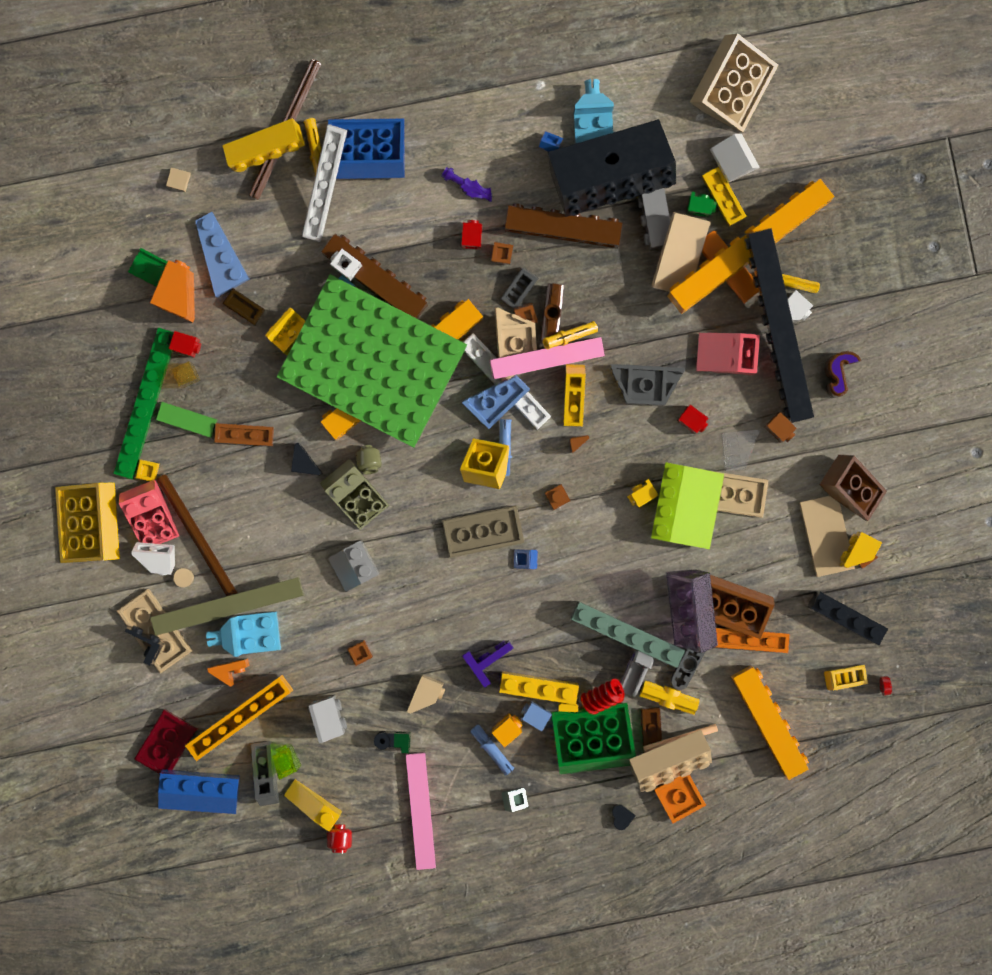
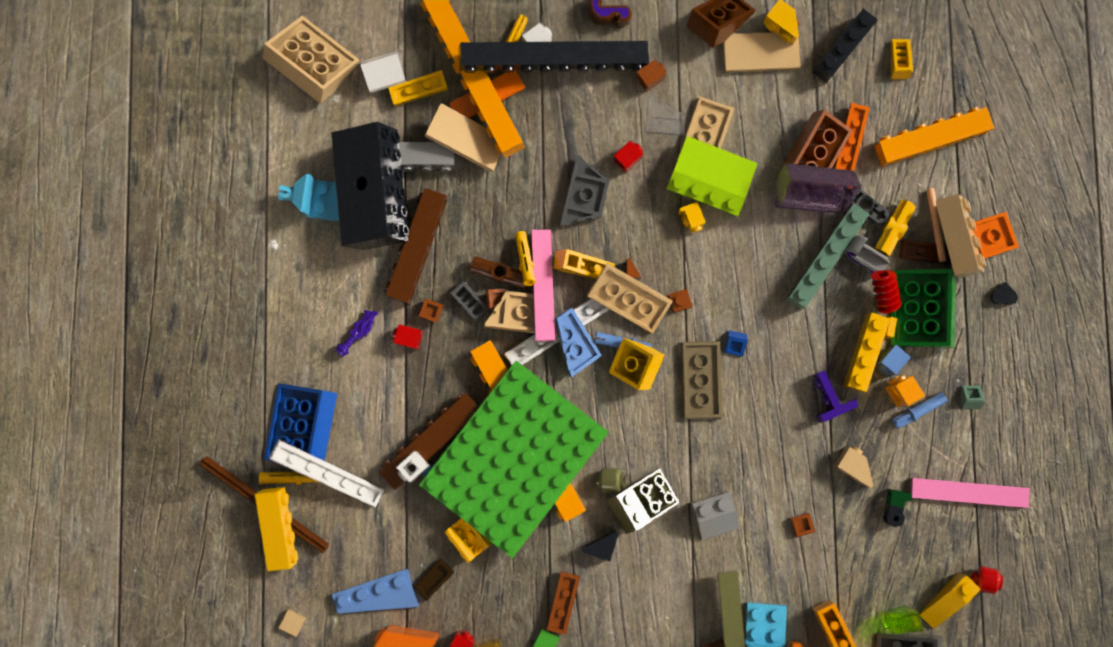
camera: 85 degrees left, 5 degrees down
(327, 718) = (865, 570): slope -> none
(549, 445) = (629, 298): none -> tan tile
(550, 142) = (331, 243): blue plate -> none
(700, 205) = (422, 111): green brick -> none
(728, 353) = (570, 110): coral slope -> none
(885, 685) = (915, 22): red tile -> none

